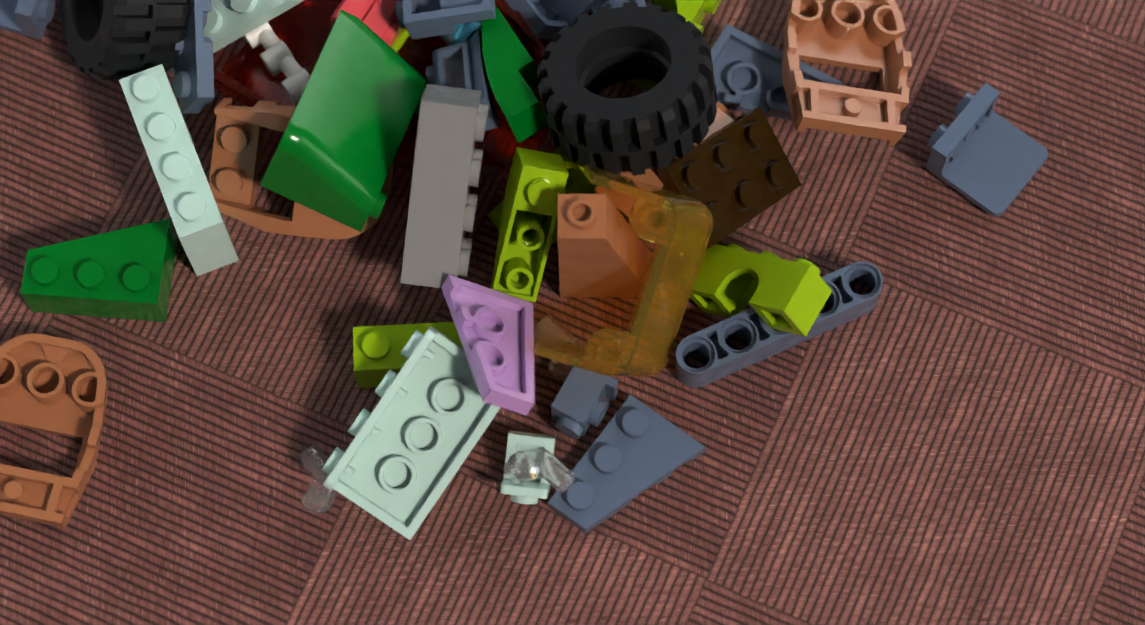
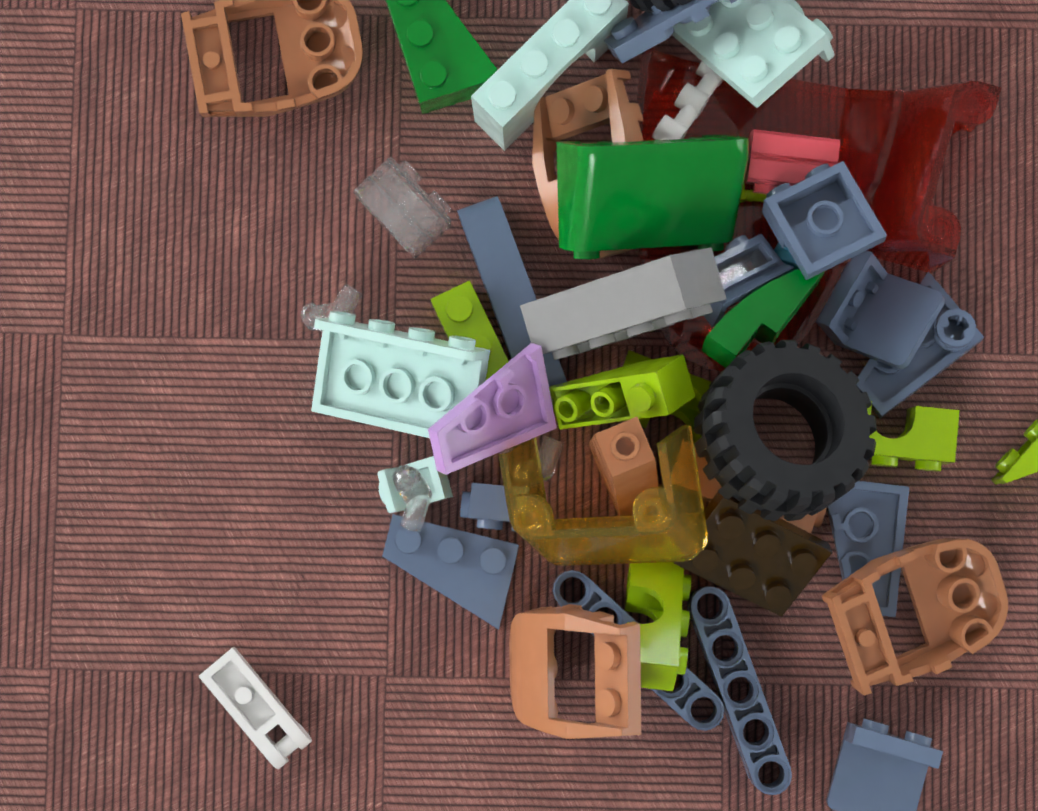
camera: 65 degrees right, 15 degrees up
(249, 368) = (404, 206): none -> clear brick
(352, 301) = (503, 276): none -> sand blue beam
(757, 419) = (616, 672): none -> nougat slope
(873, 236) = (754, 705): none -> sand blue beam

